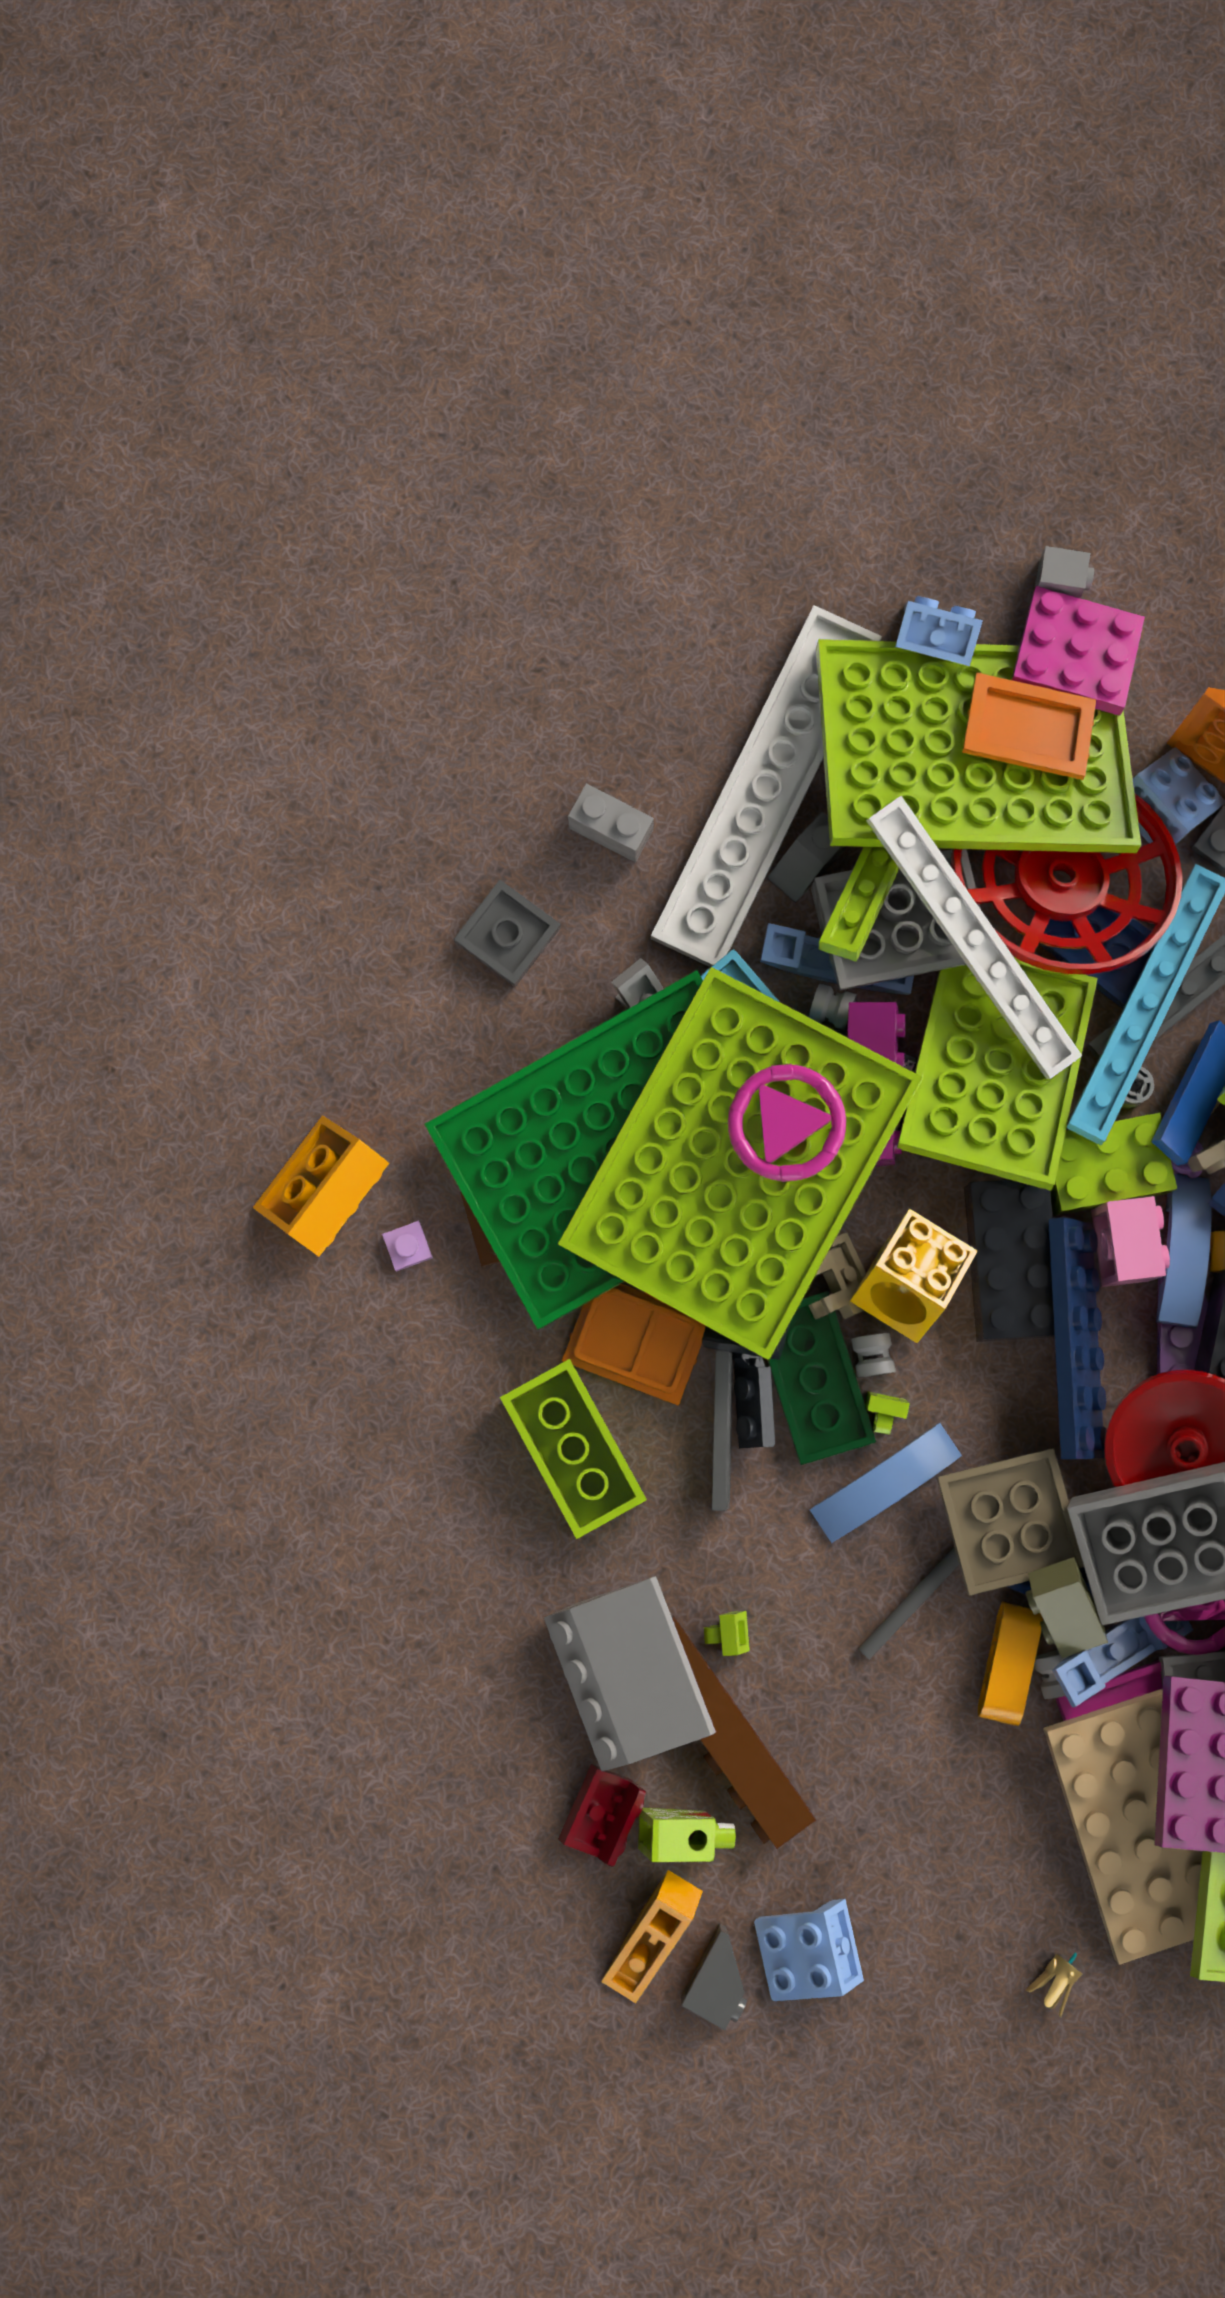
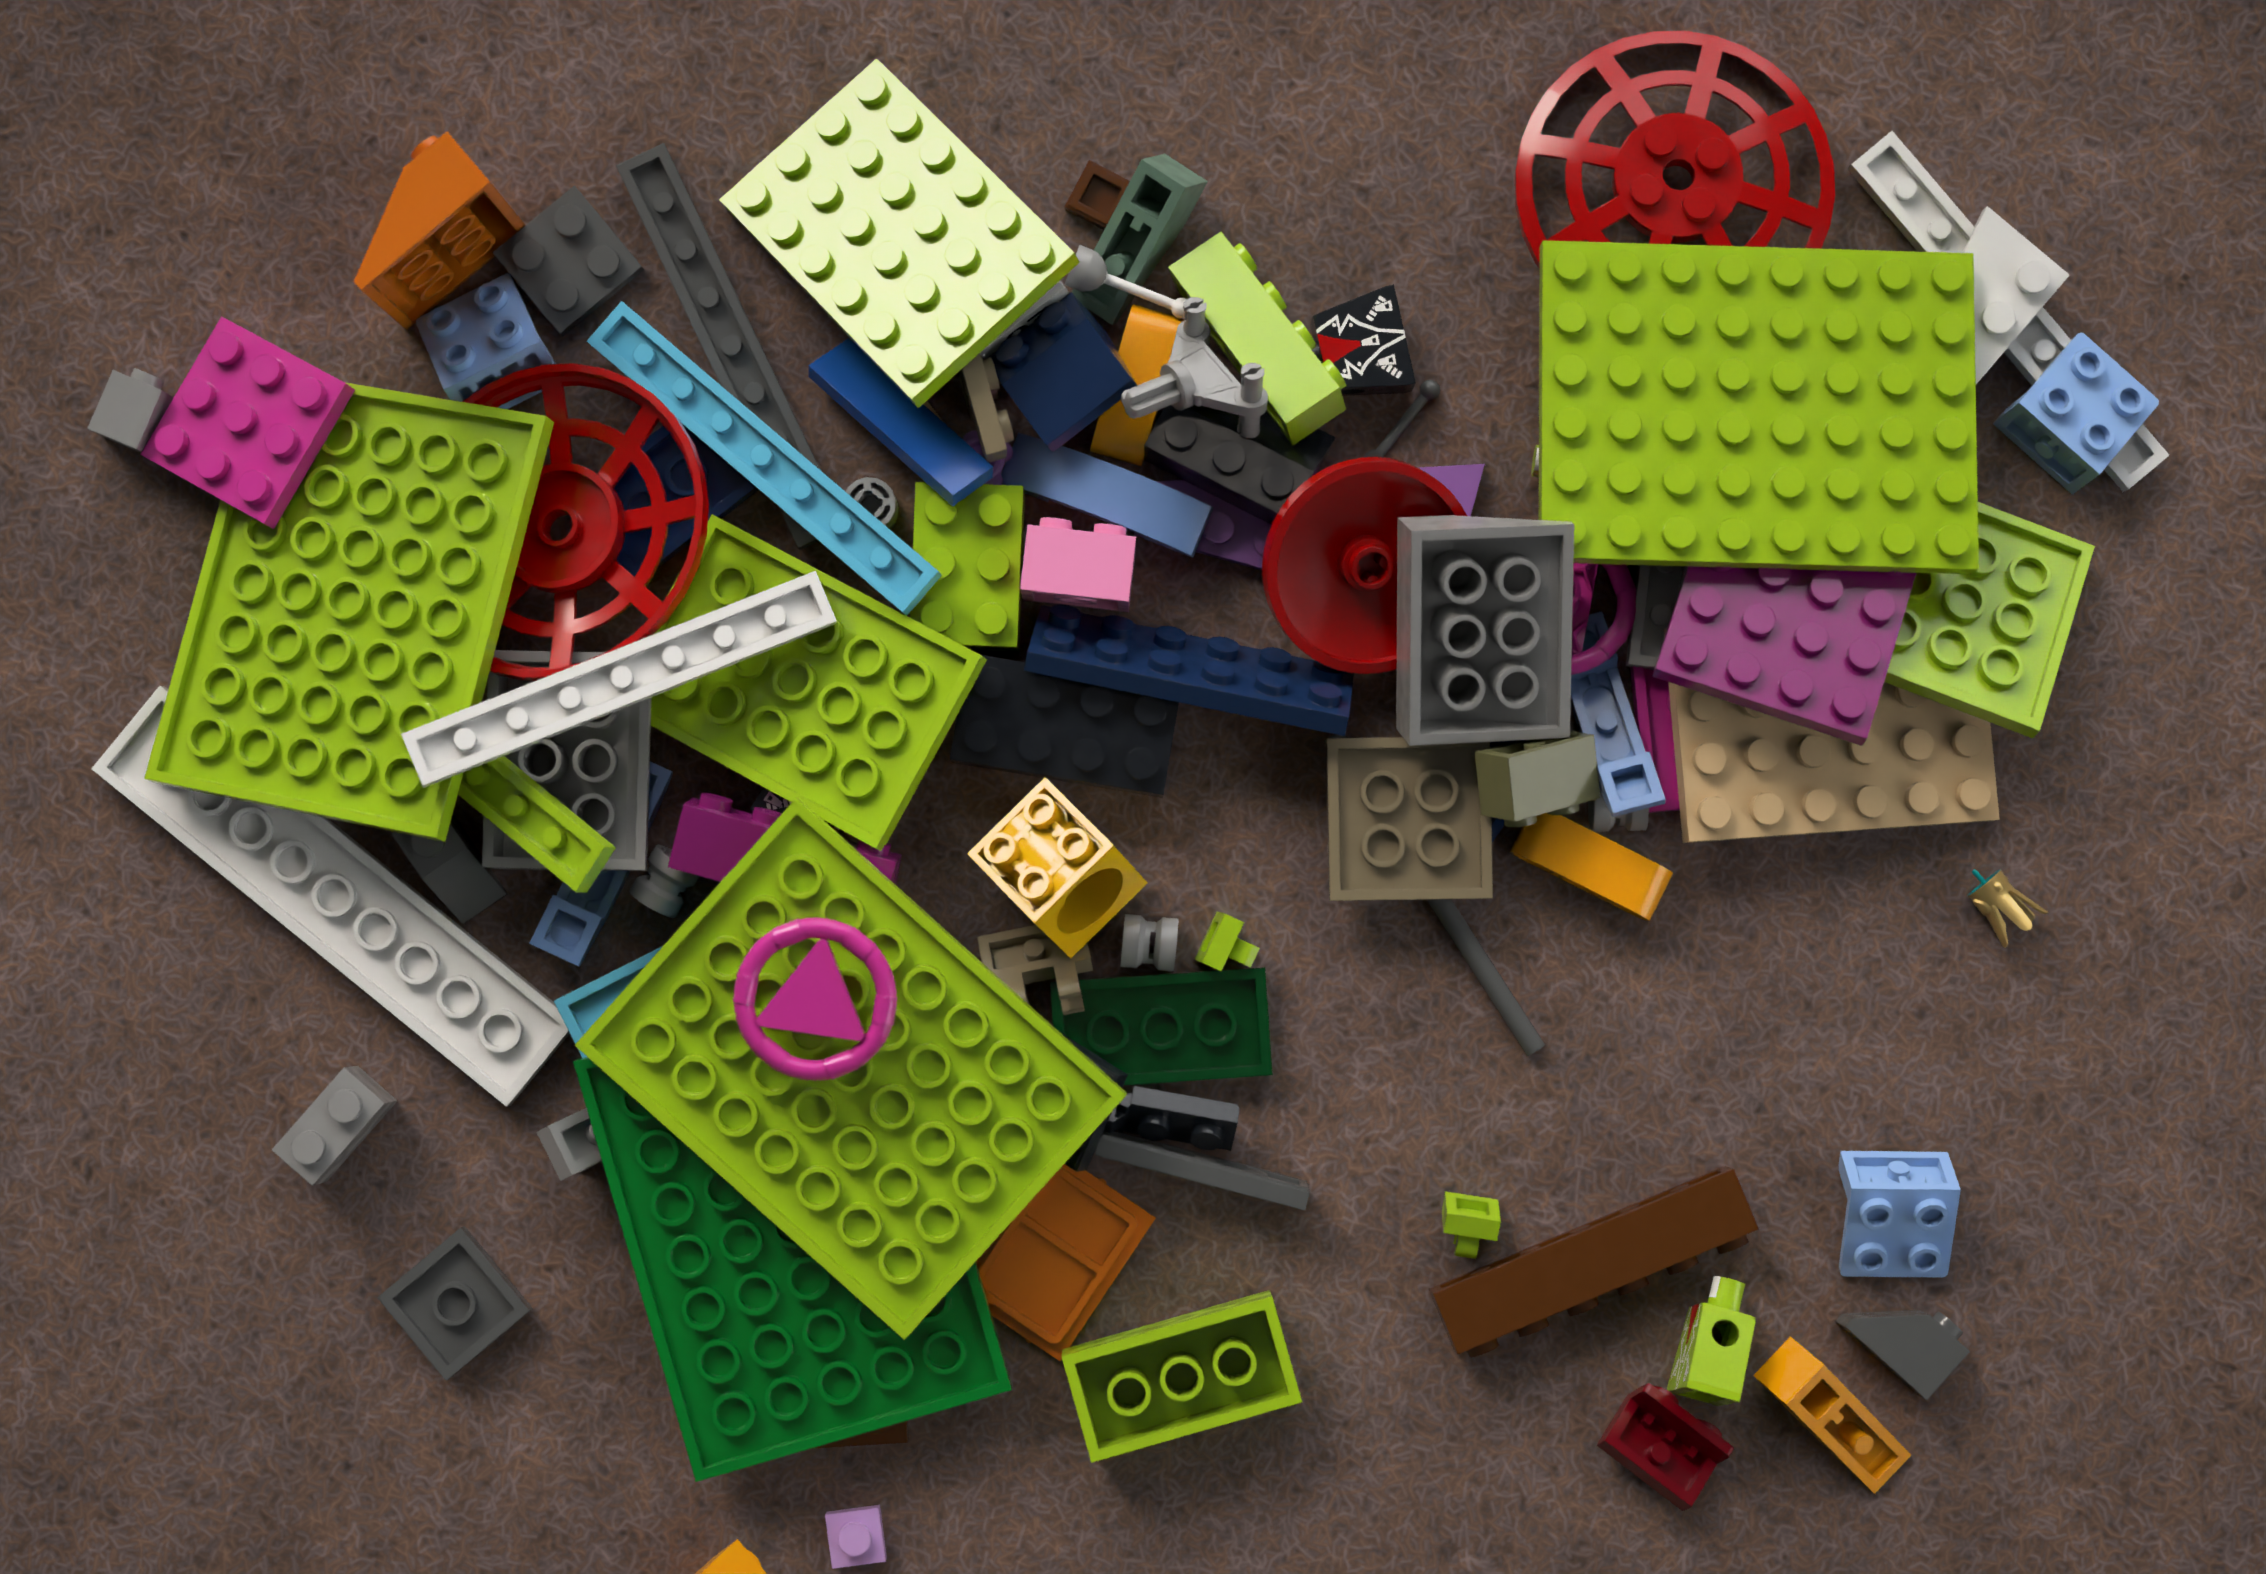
camera: 80 degrees left, 5 degrees up
(629, 1674) = (1493, 1373): light grey slope -> none
(886, 1483) = (1321, 965): medium blue slope -> none
(939, 632) = (173, 609): light blue bracket -> none
(1029, 726) = (341, 522): orange piece -> none

